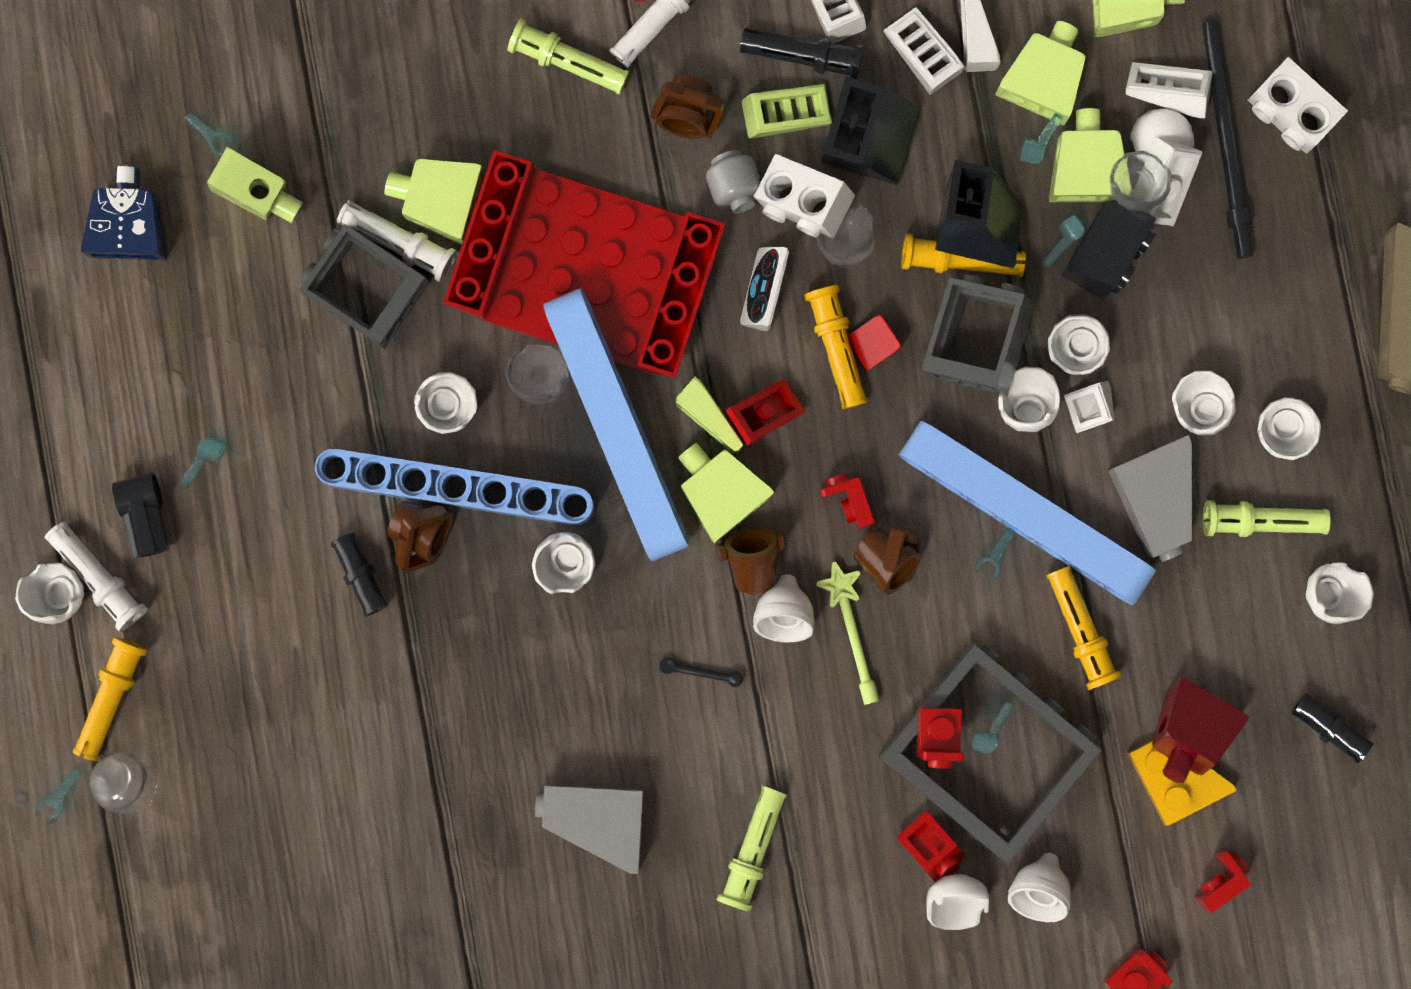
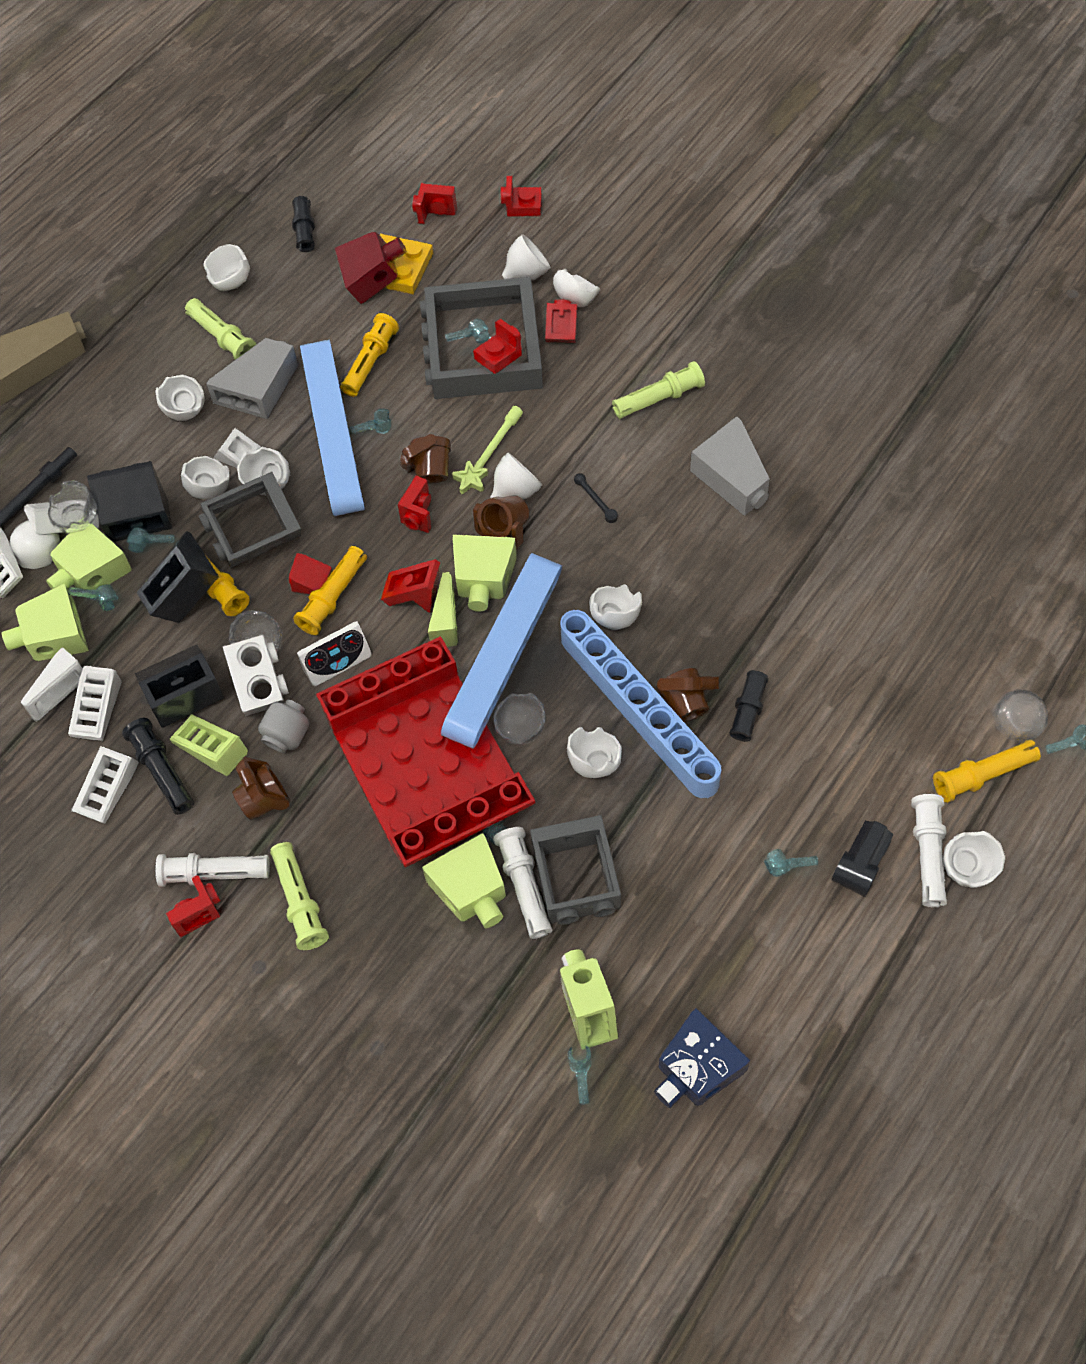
camera: 130 degrees left, 25 degrees down
(1289, 428) = (155, 352): white hair -> none

